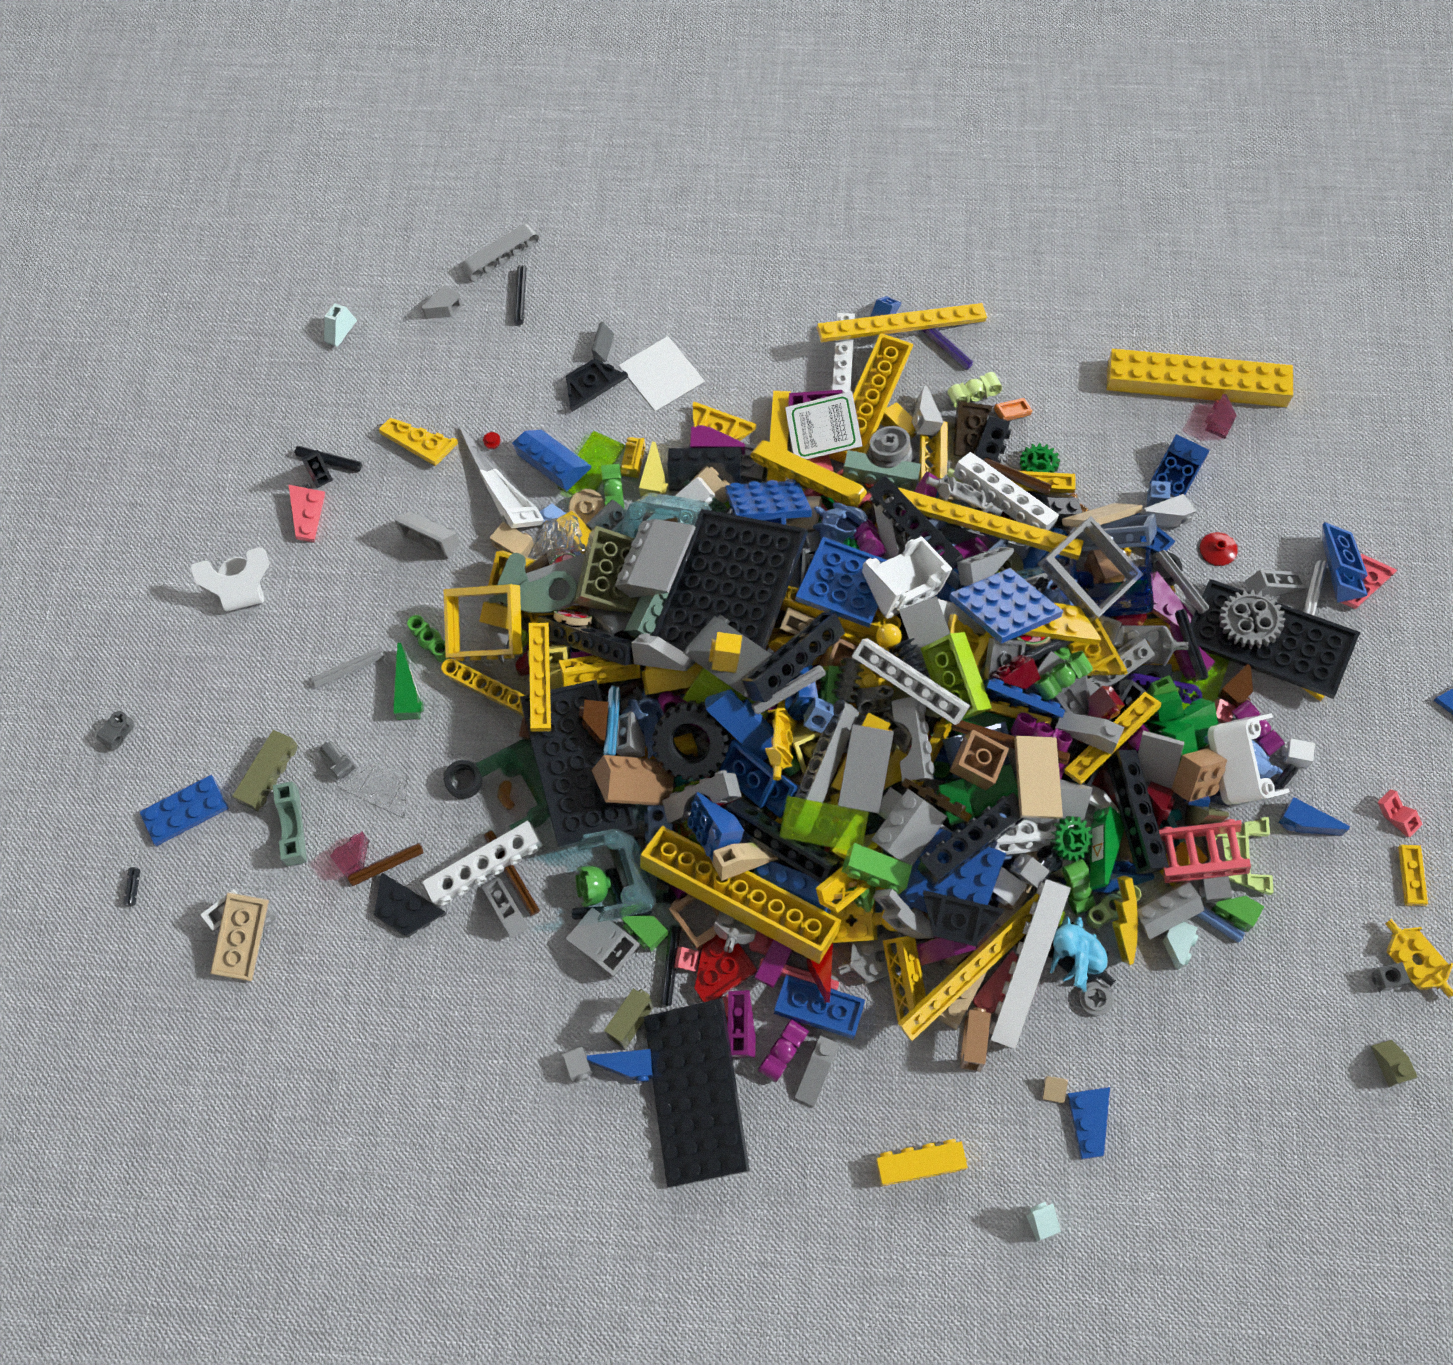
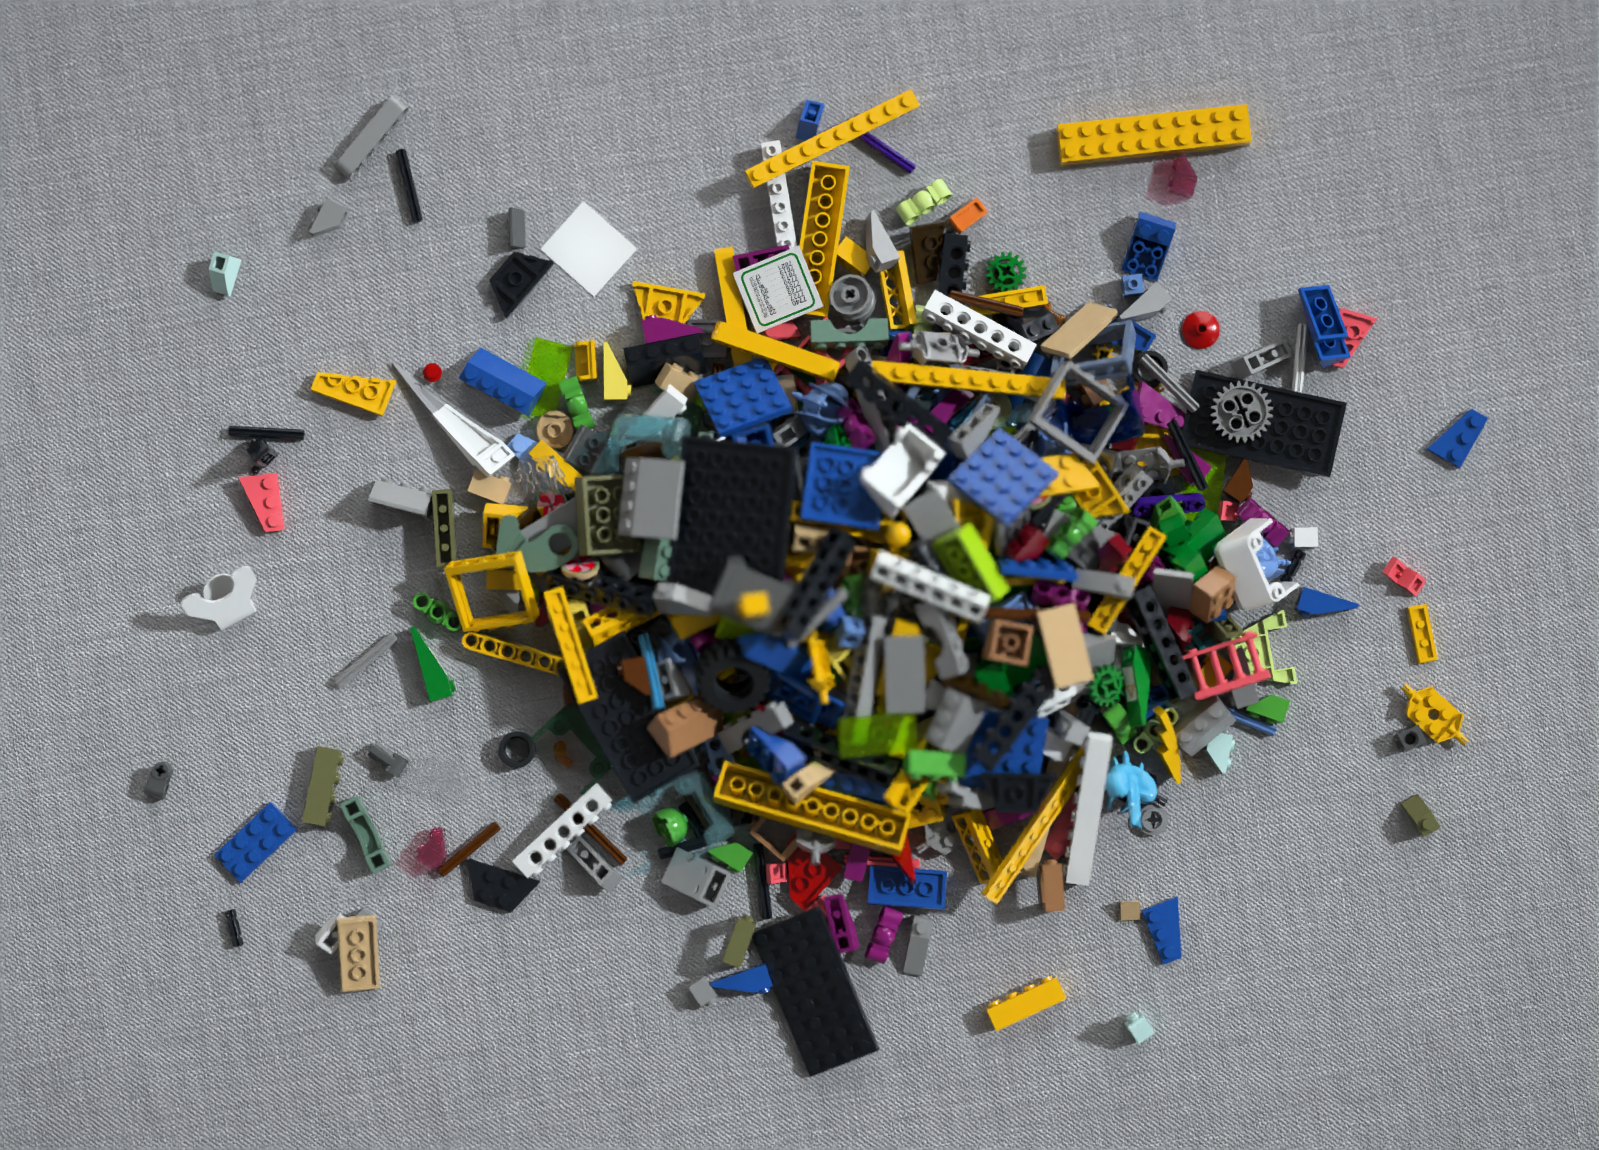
camera: 25 degrees left, 20 degrees up
(459, 561) = (444, 527): none -> olive brick

